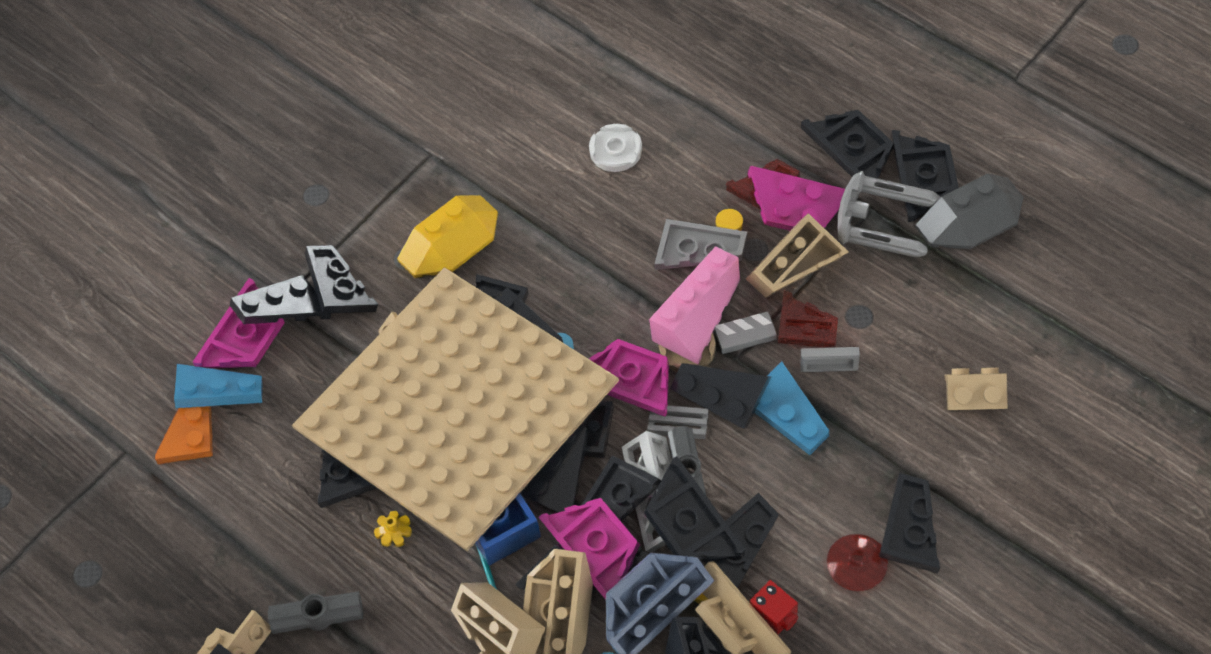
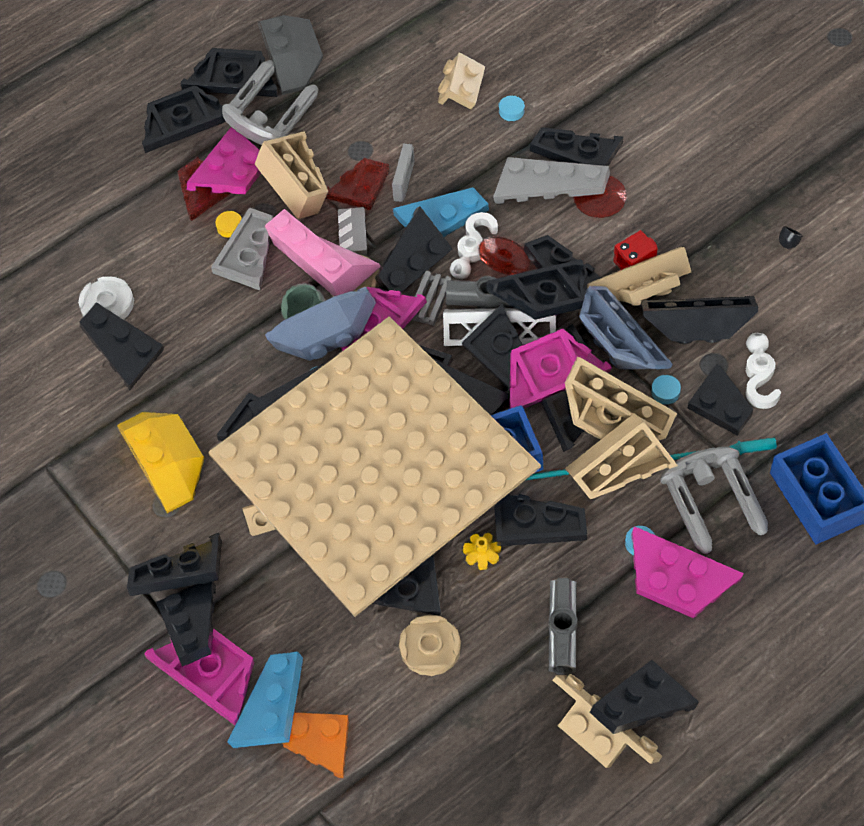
camera: 80 degrees left, 0 degrees up
(289, 504) = (430, 645): none -> tan tile
(428, 570) = (537, 522): none -> black wing
(565, 171) = (122, 344): none -> black wing
(605, 331) = (324, 326): none -> sand blue wedge
(632, 306) = (300, 298): none -> sand green hair
(748, 445) = (470, 243): none -> white piece
(751, 471) = (503, 255): none -> clear red dish
(855, 501) = (535, 178): none -> light grey wing
(955, 448) = (511, 108): none -> medium azure tile

